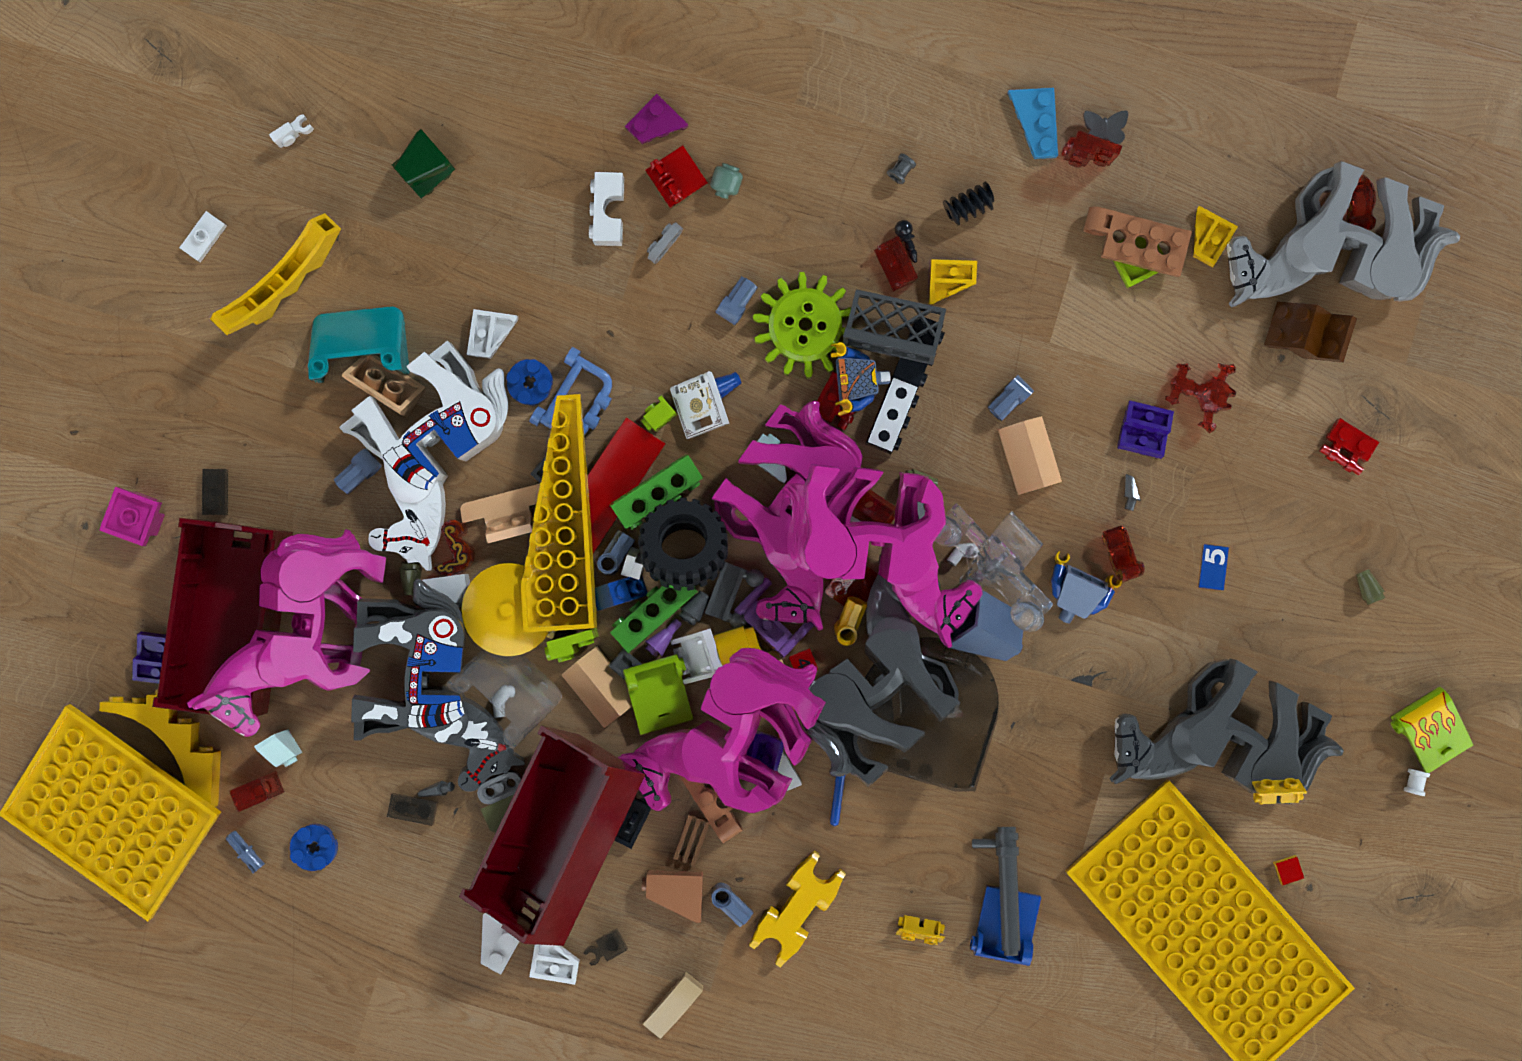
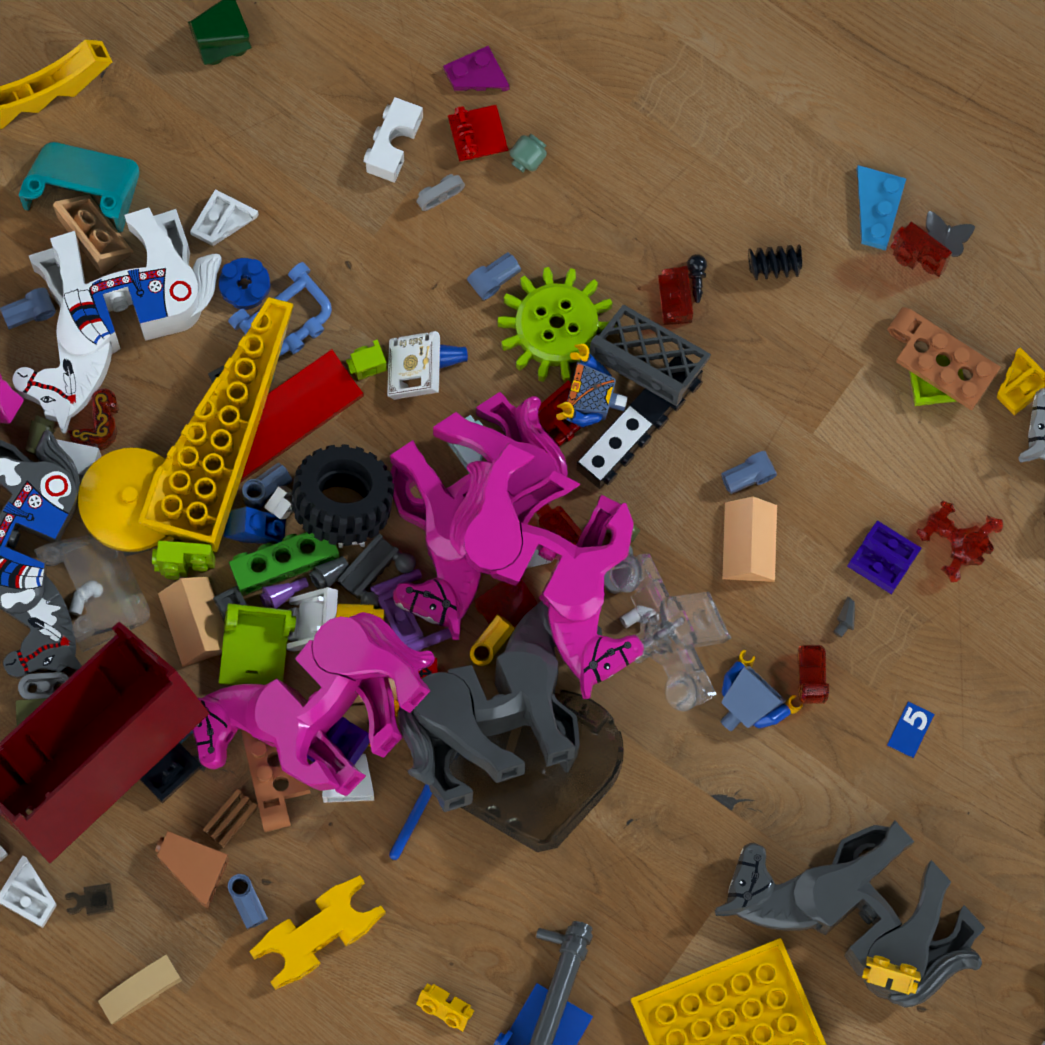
camera: 15 degrees right, 15 degrees down
(504, 513) = (162, 403): light nougat plate -> none
(690, 480) = (372, 421): bright green brick -> none
(901, 168) = (716, 204): dark grey bush -> none
(950, 277) = (729, 329): yellow wing -> none
(989, 631) = (635, 699): sand blue slope -> none

